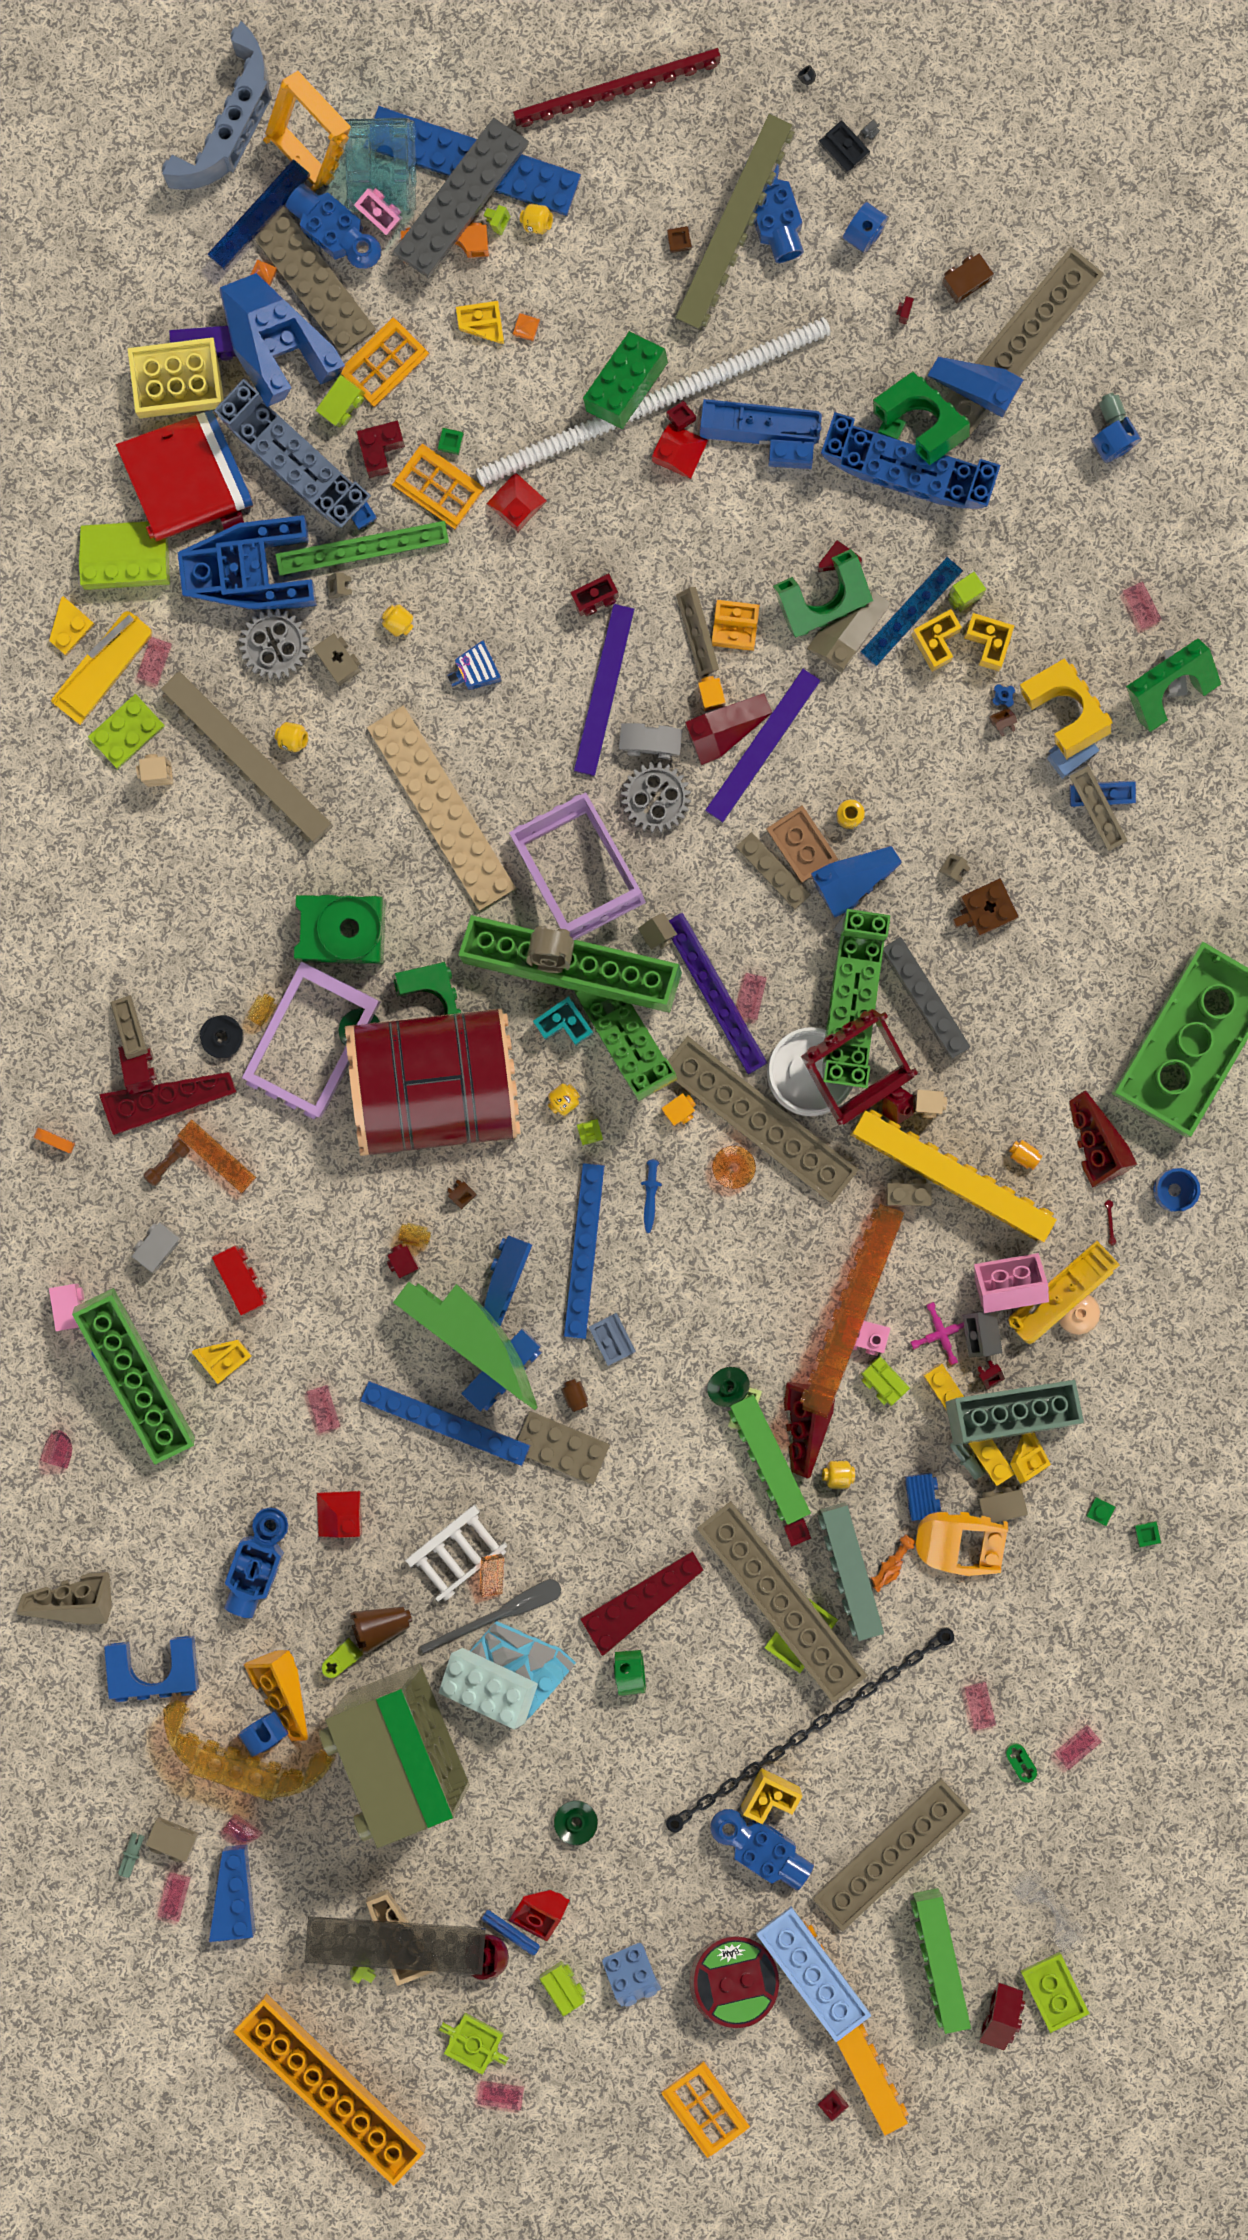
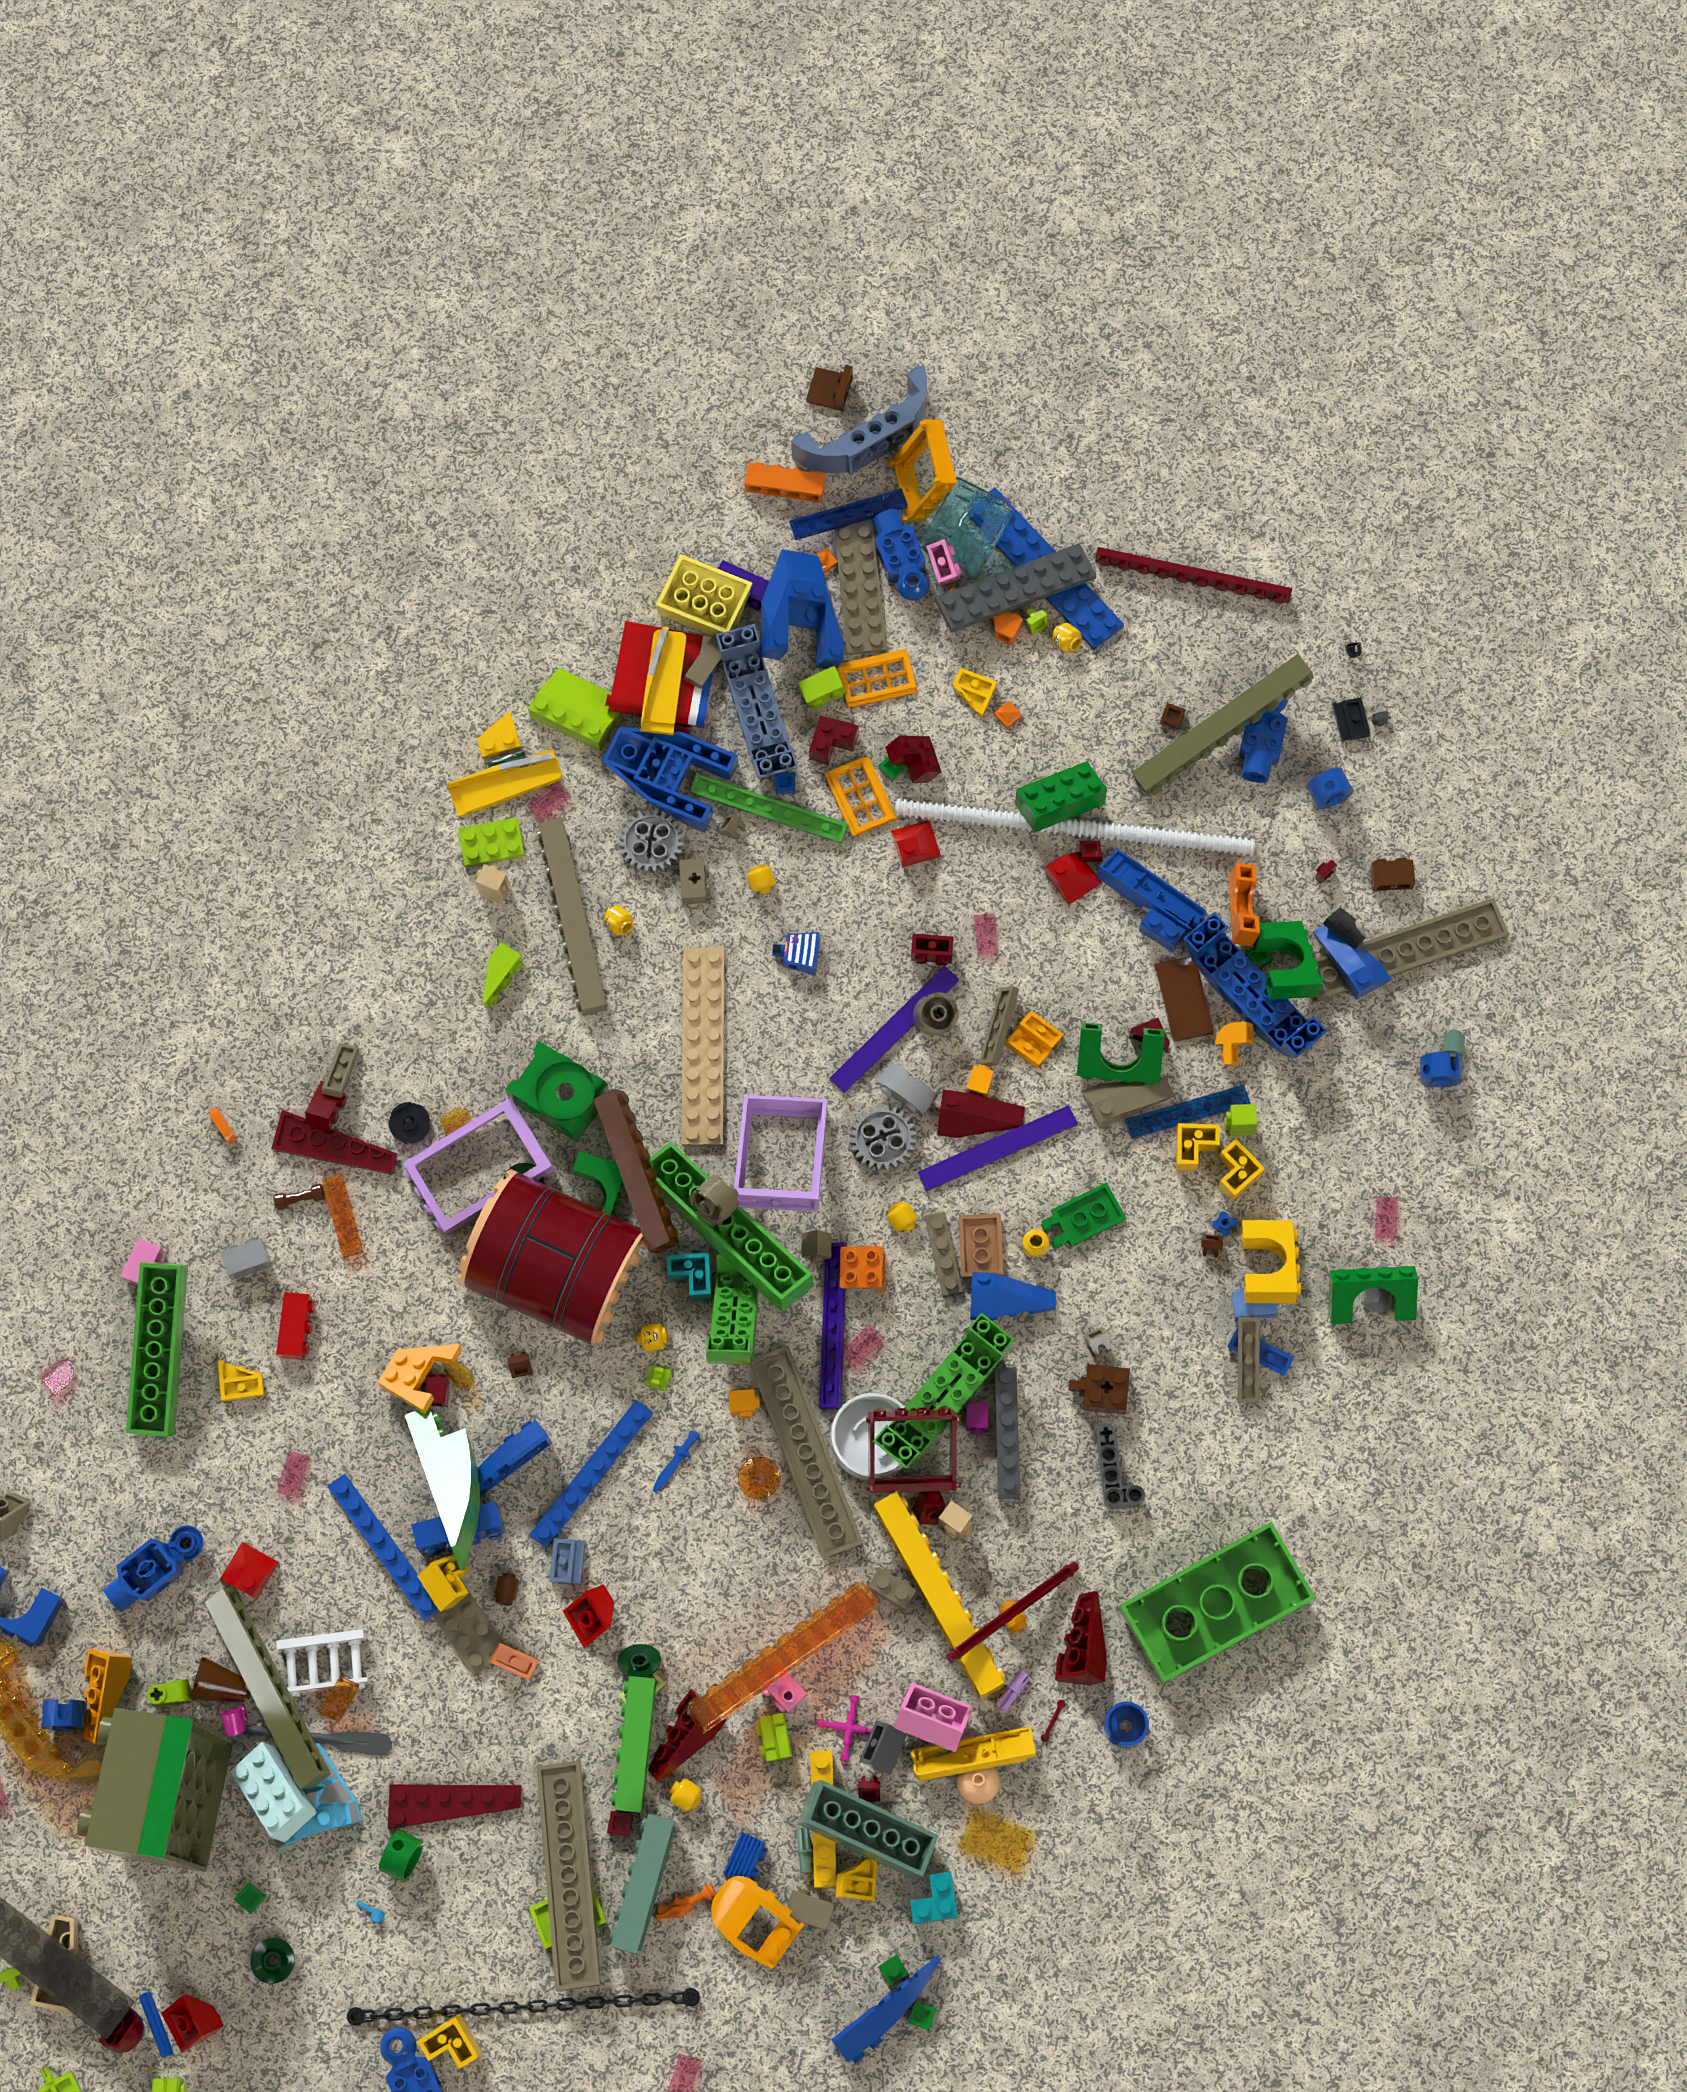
camera: 30 degrees right, 15 degrees down
(90, 643) = (508, 758): none -> clear green axle
(161, 95) = (830, 388): none -> reddish brown bracket
(178, 216) = (785, 482): none -> orange brick
(191, 484) = (663, 682): none -> yellow piece
(212, 843) = (501, 967): none -> lime slope
(216, 442) = (704, 664): none -> dark tan tile
(367, 1258) = (409, 1369): none -> light orange wing
(413, 1648) = (234, 1720): none -> dark pink piece
(424, 1605) = (267, 1688): none -> olive brick
(459, 961) = (636, 1171): none -> reddish brown brick
(470, 417) = (917, 755): none -> dark red brick
(520, 1425) = (444, 1582): none -> yellow brick
(522, 1783) = (250, 1898): none -> green plate
(620, 1452) = (513, 1660): none -> orange plate
(631, 644) = (946, 1009): none -> dark tan brick
(632, 551) = (985, 934): none -> clear pink tile
(639, 1731) = (376, 1916): none -> dark azure hand
(663, 1372) = (591, 1614): none -> red slope
(711, 927) = (863, 1268): none -> orange bracket
(716, 859) = (901, 1216): none -> yellow head
(839, 370) = (1241, 888): none -> orange arch
(847, 507) = (1184, 999): none -> reddish brown tile
(877, 762) = (1085, 1216): none -> green tile
(891, 1000) = (977, 1417): none -> magenta brick
(911, 521) = (1231, 1037): none -> light orange brick
(952, 354) = (1345, 927): none -> black tile
(1026, 1154) = (1017, 1608): none -> dark red piece
(1036, 972) = (1114, 1467): none -> dark grey beam
(1062, 1217) = (1013, 1690): none -> lavender axle
(1109, 1434) = (940, 1905): none -> teal brick
(1116, 1553) = (877, 2020): none -> blue wedge
(1122, 1352) = (996, 1840): none -> clear yellow tile

